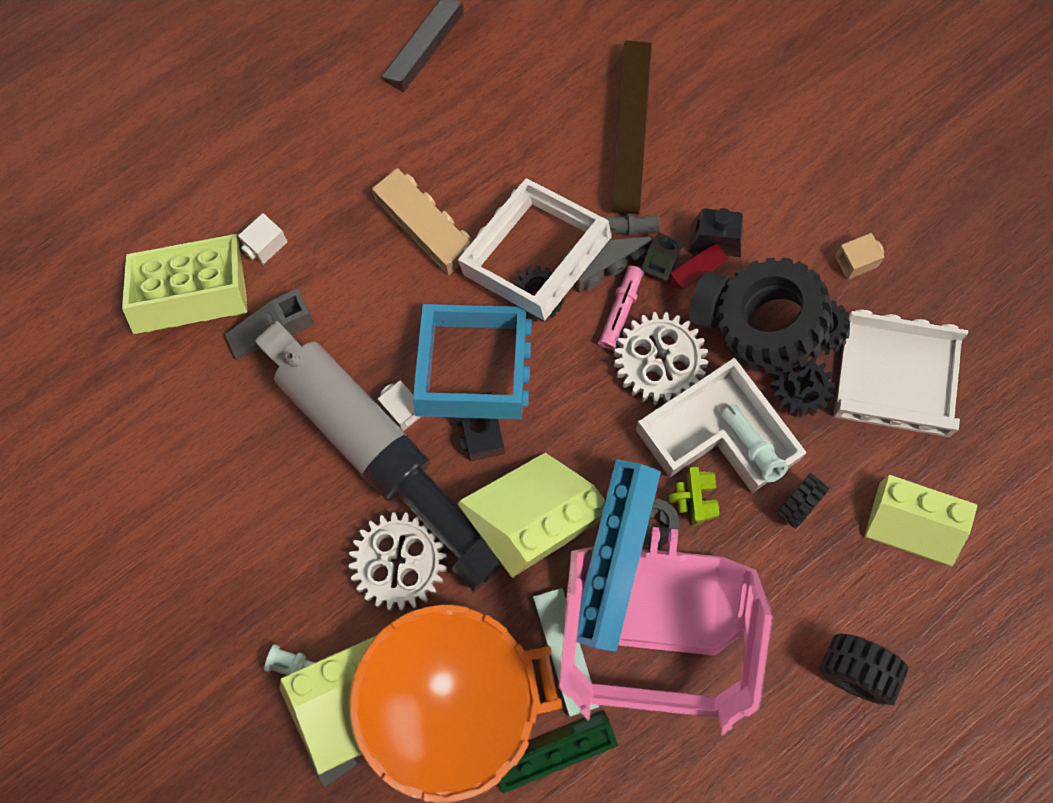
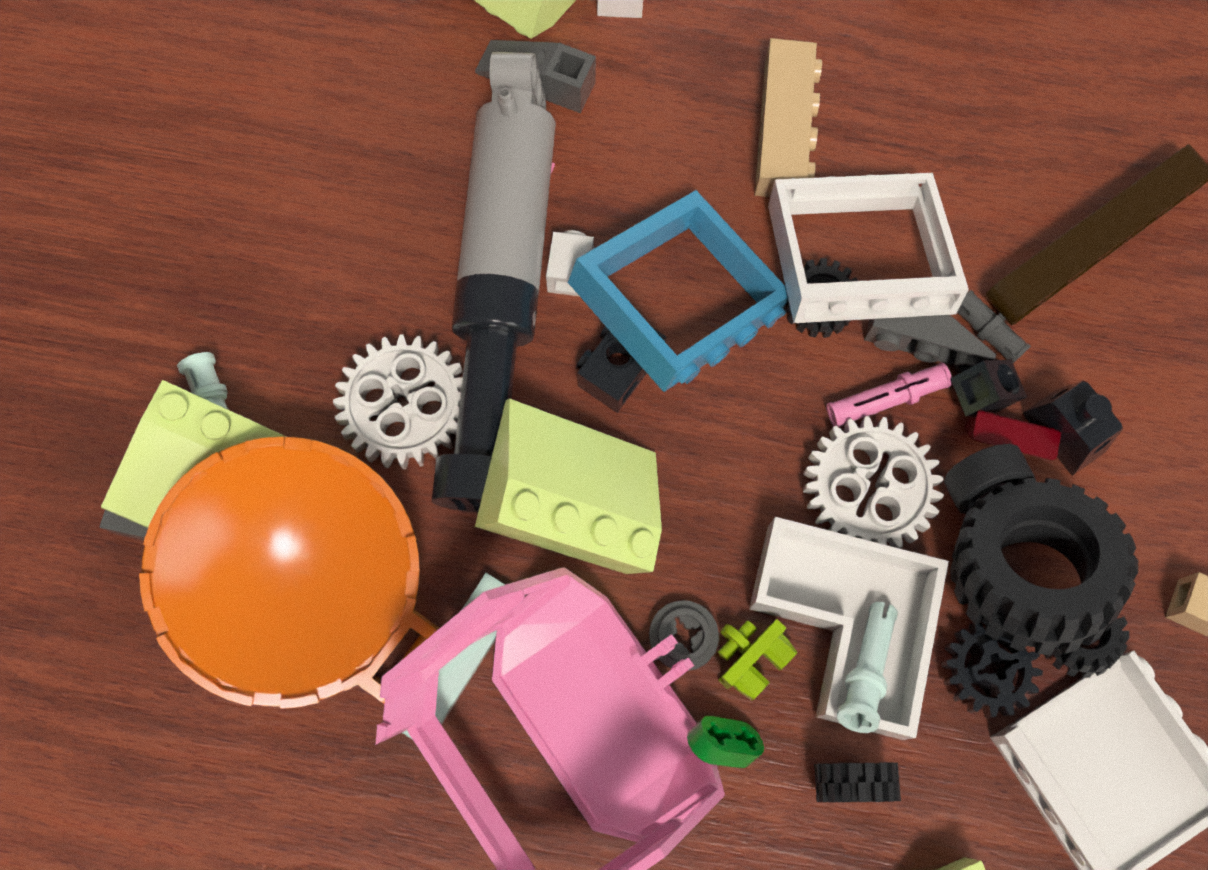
camera: 45 degrees right, 0 degrees up
(561, 749) = (345, 745): dark green slope -> none
(616, 554) = (601, 620): dark azure brick -> none
(728, 548) = (725, 742): none -> green beam

